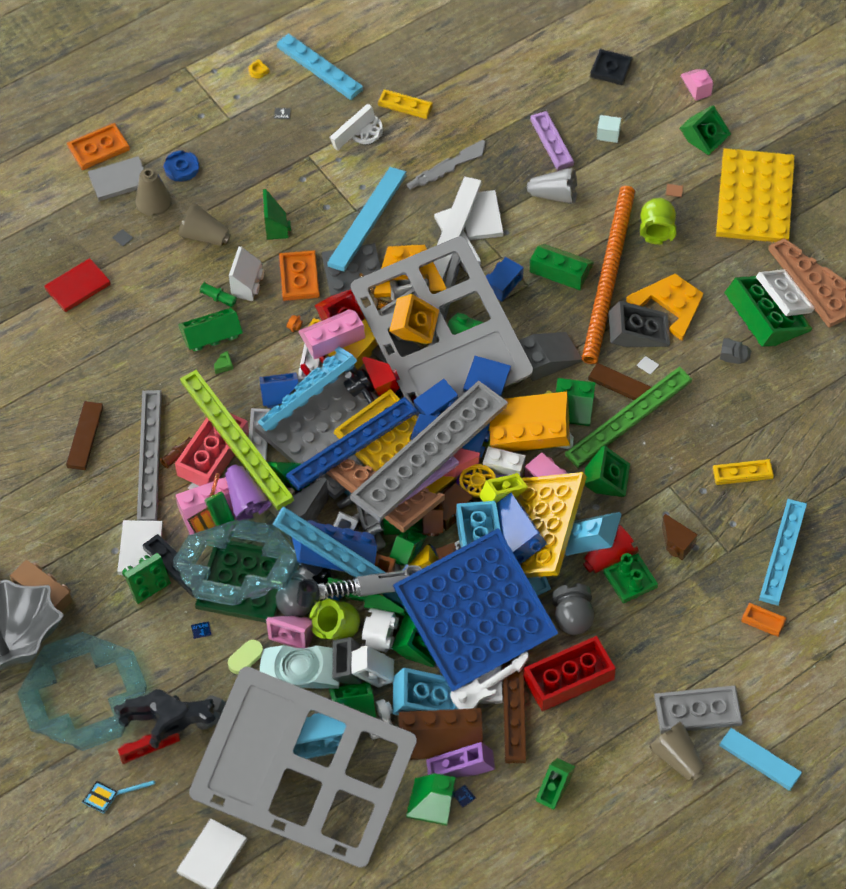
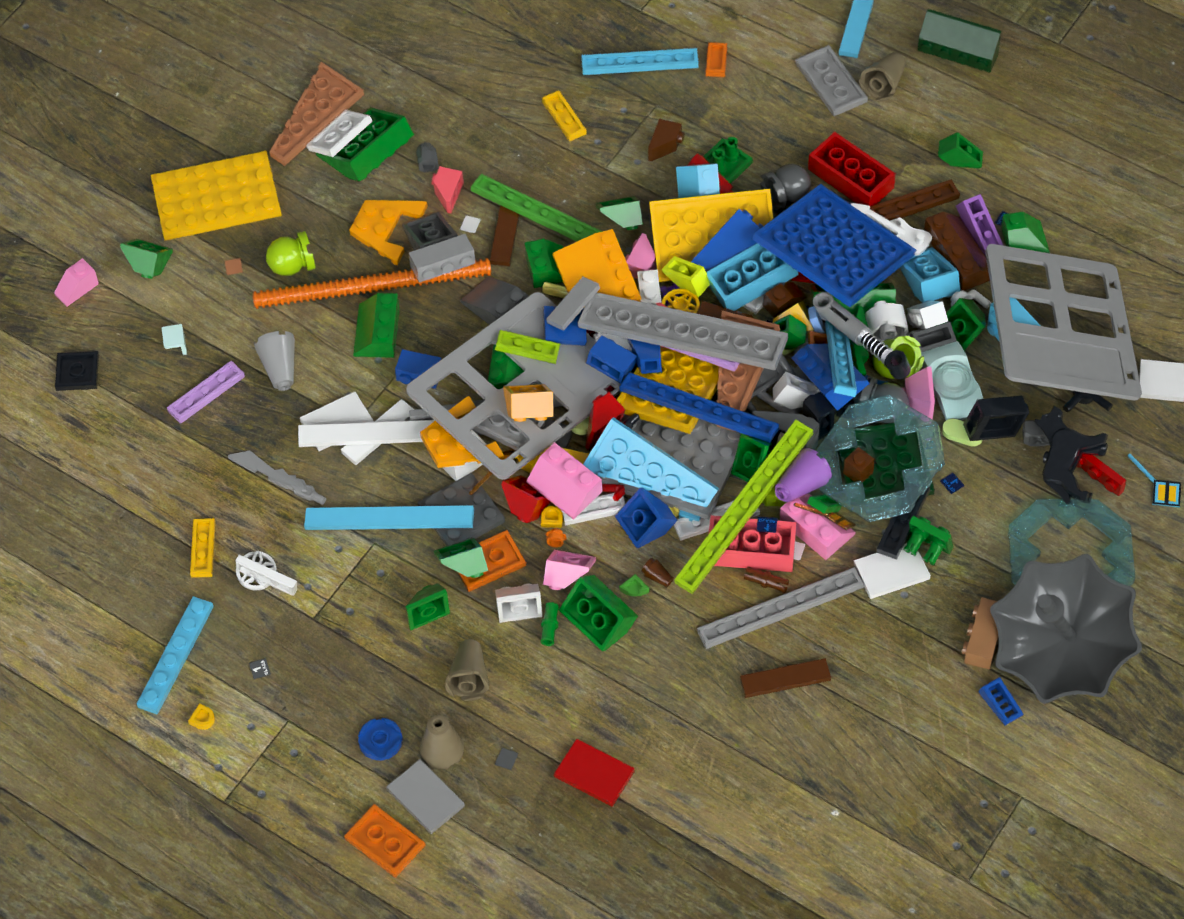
camera: 110 degrees left, 0 degrees up
(216, 456) = (767, 524): none -> clear blue sticker
(225, 379) = (655, 571): none -> reddish brown cone
(233, 660) = (981, 427): none -> black window
(240, 548) = (858, 465): none -> reddish brown brick
(261, 319) = (565, 568): none -> bright pink slope
(302, 249) = (464, 558): none -> slope
(474, 341) = (527, 346): none -> lime tile
(499, 382) = (573, 303): none -> light grey tile
(602, 316) = (442, 258): none -> light grey brick
(690, 354) = (447, 186): none -> coral slope
(692, 836) = (959, 40): none -> slope

